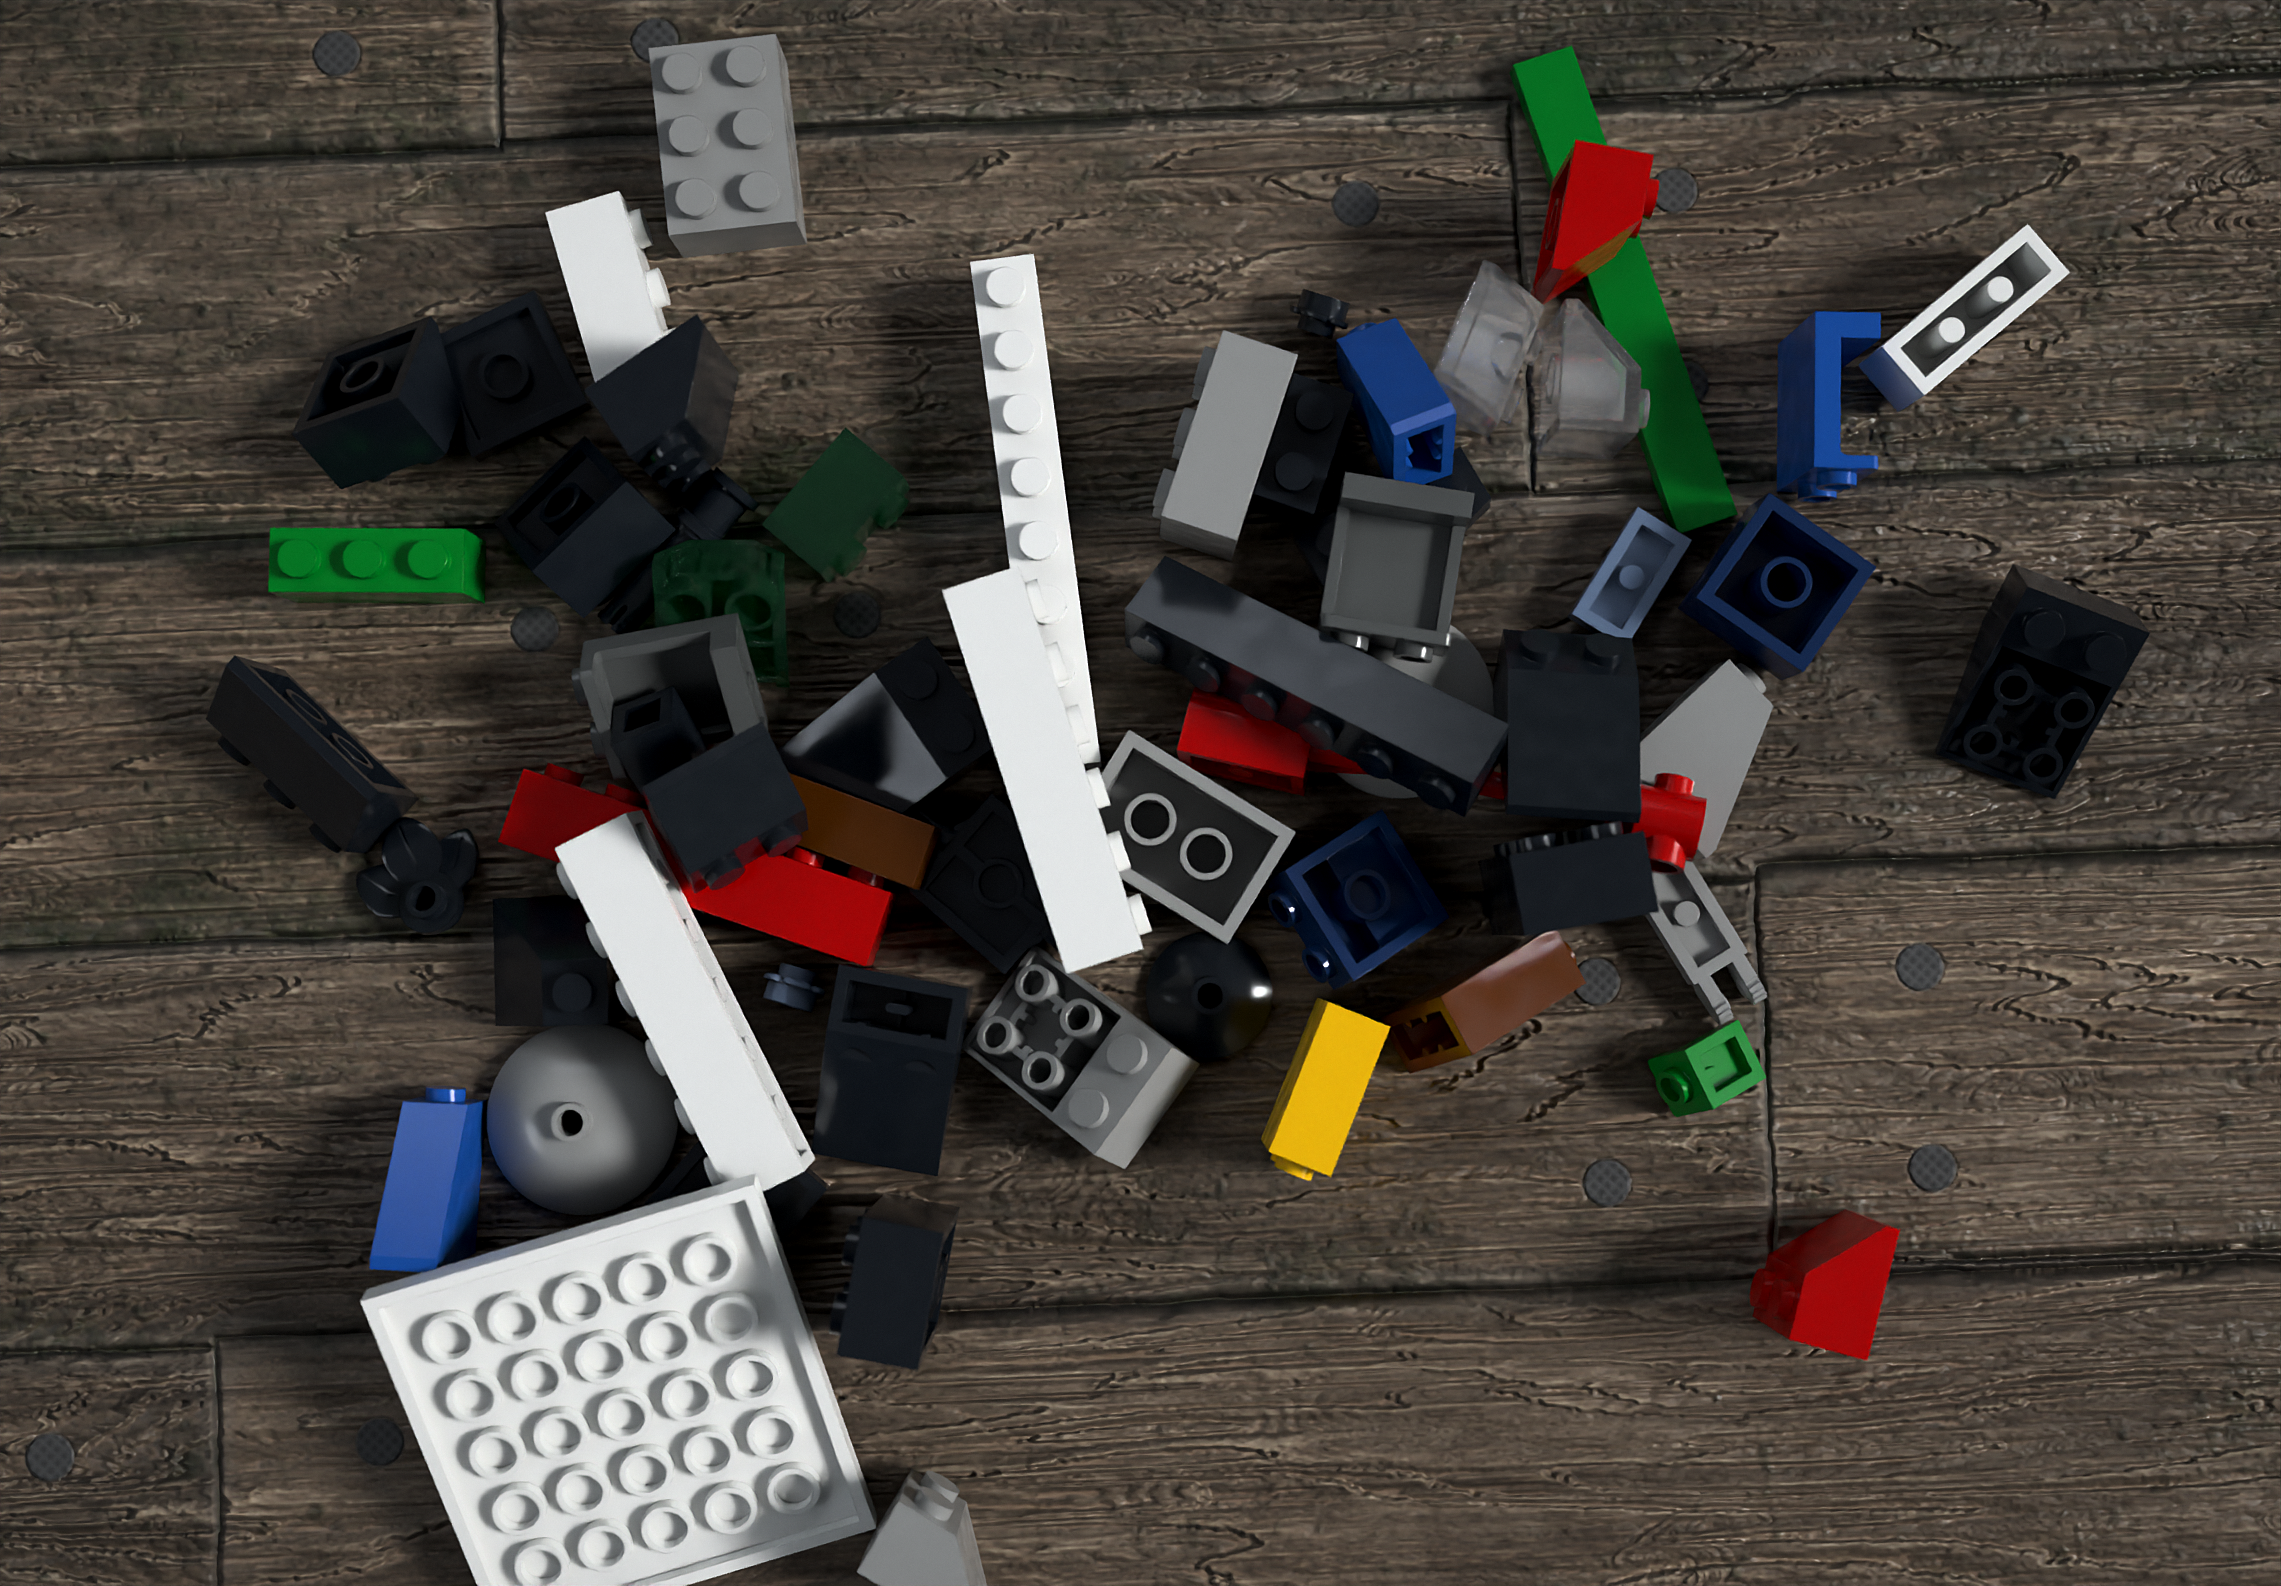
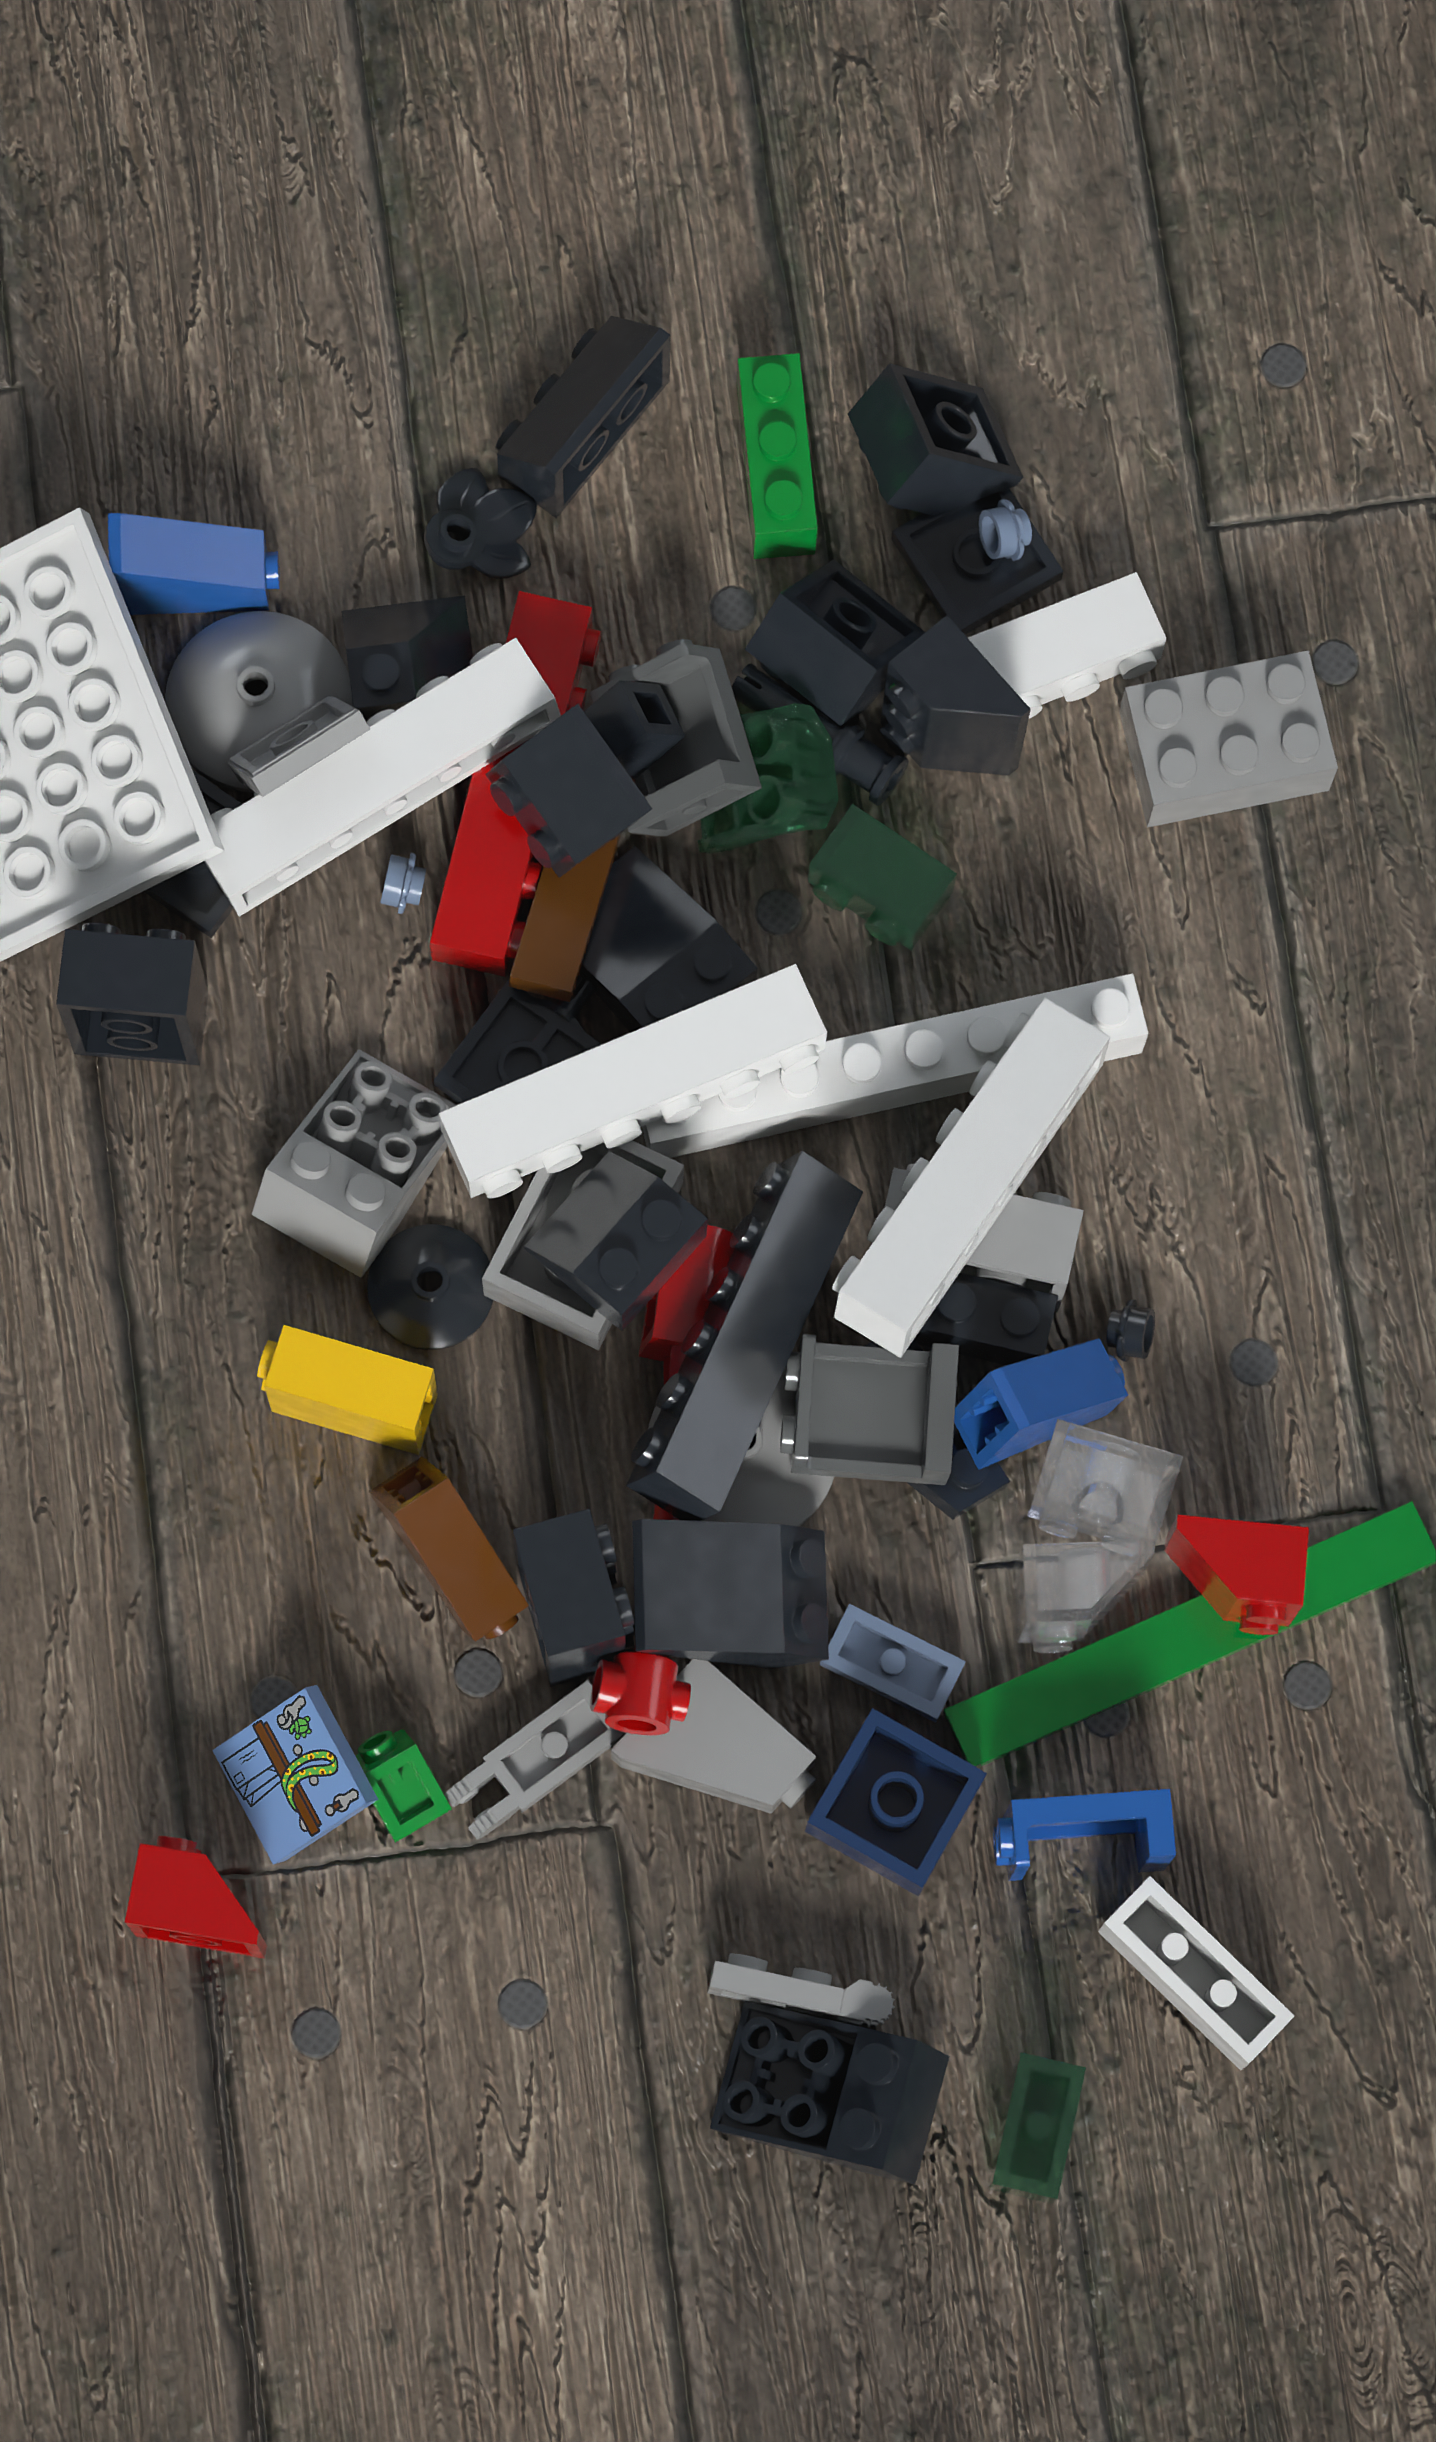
camera: 85 degrees right, 10 degrees down
(486, 340) = (1004, 531): none -> sand blue plate
(645, 1084) = (298, 745): none -> light grey tile
(890, 1068) = (333, 979): black slope -> none
(1188, 434) = (970, 1176): none -> white brick
(1205, 802) = (618, 1238): none -> black slope
(1355, 901) = (537, 1413): dark blue plate -> none
(1699, 1170) = (295, 1774): none -> medium blue tile
(1944, 699) = (804, 1992): none -> light grey hinge
(2099, 486) = (1036, 2128): none -> clear green brick

